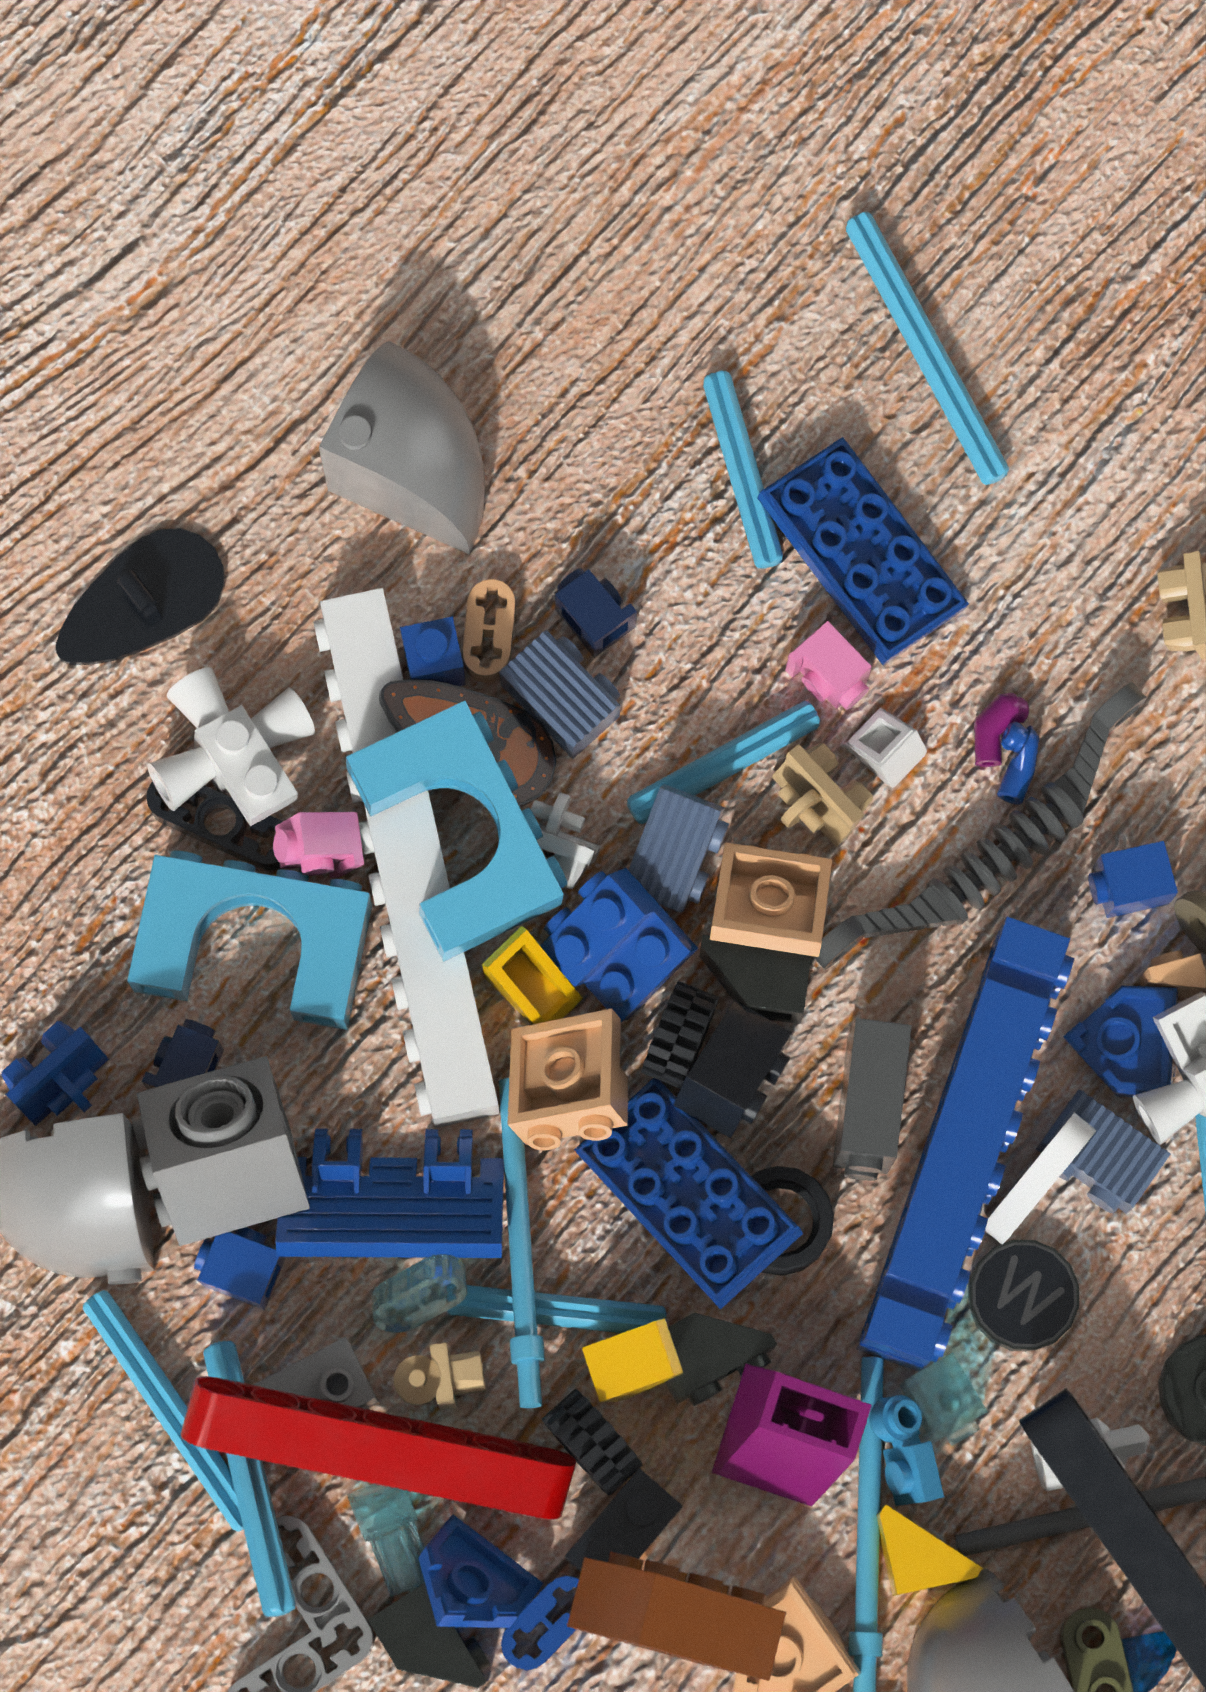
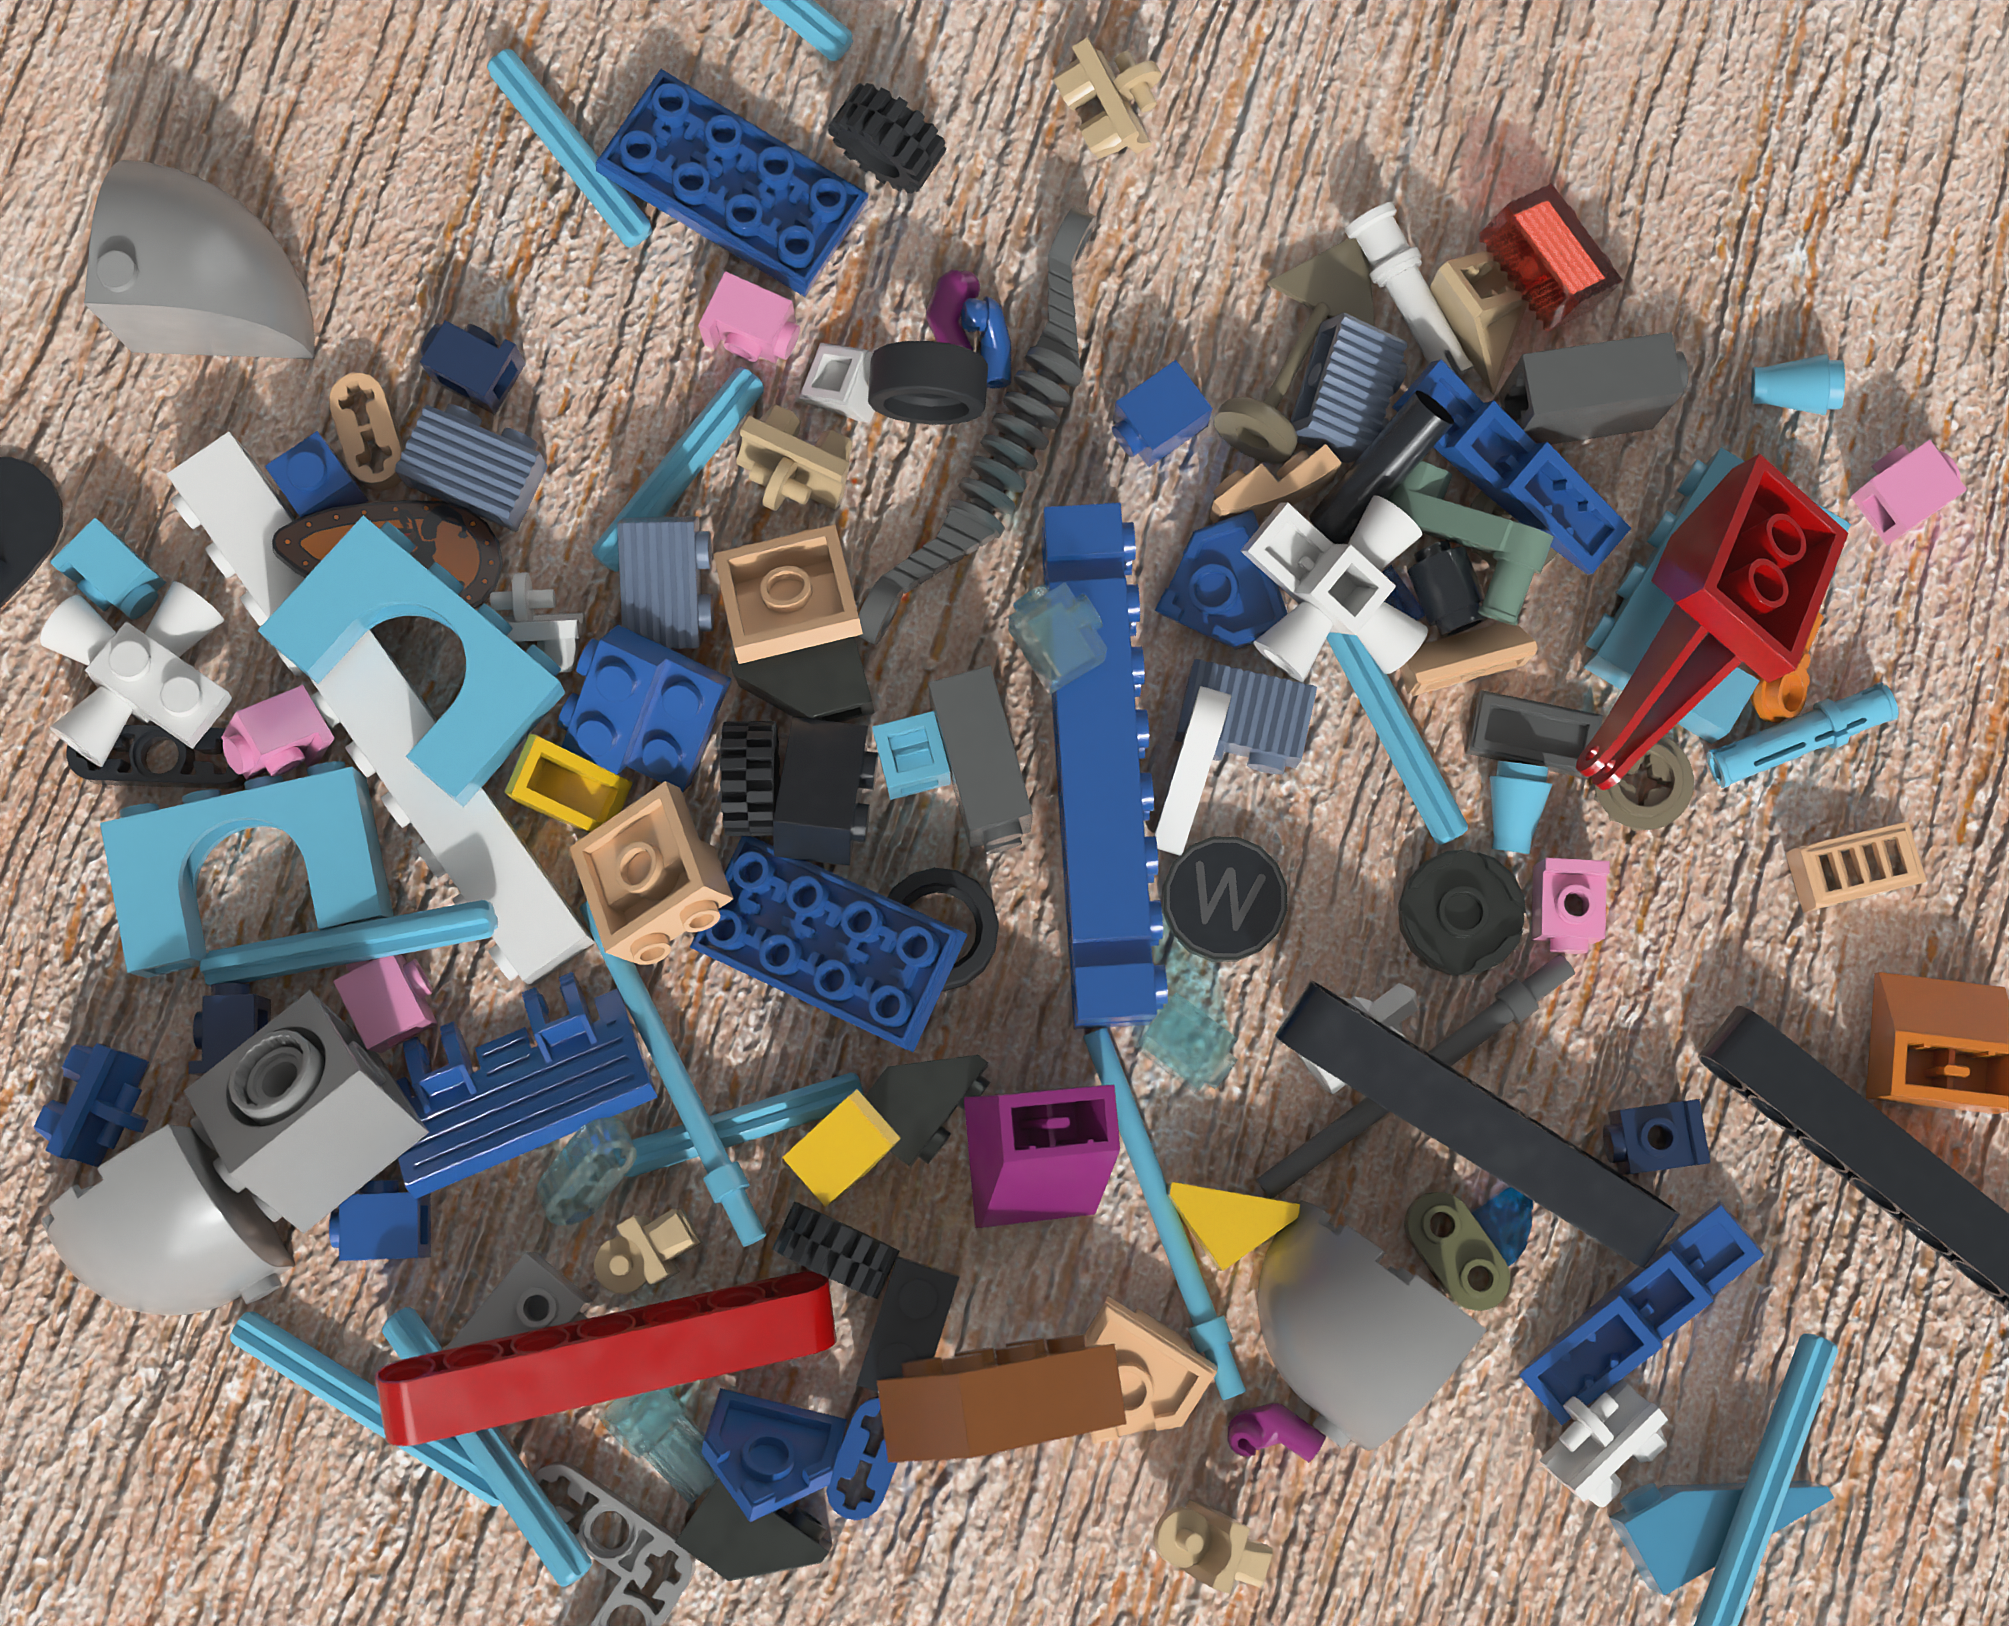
camera: 25 degrees left, 5 degrees up
(242, 658) = (109, 571): none -> medium azure brick
(310, 1032) = (350, 943): none -> medium azure axle
(317, 1088) = (386, 1000): none -> bright pink brick
(817, 1071) = (912, 755): none -> medium azure brick
(910, 1464) = (1179, 1126): dark azure plate -> none
(954, 777) = (928, 382): none -> black tyre
(975, 1023) = (1057, 634): none -> clear light blue brick
(1002, 566) = (887, 138): none -> black tyre

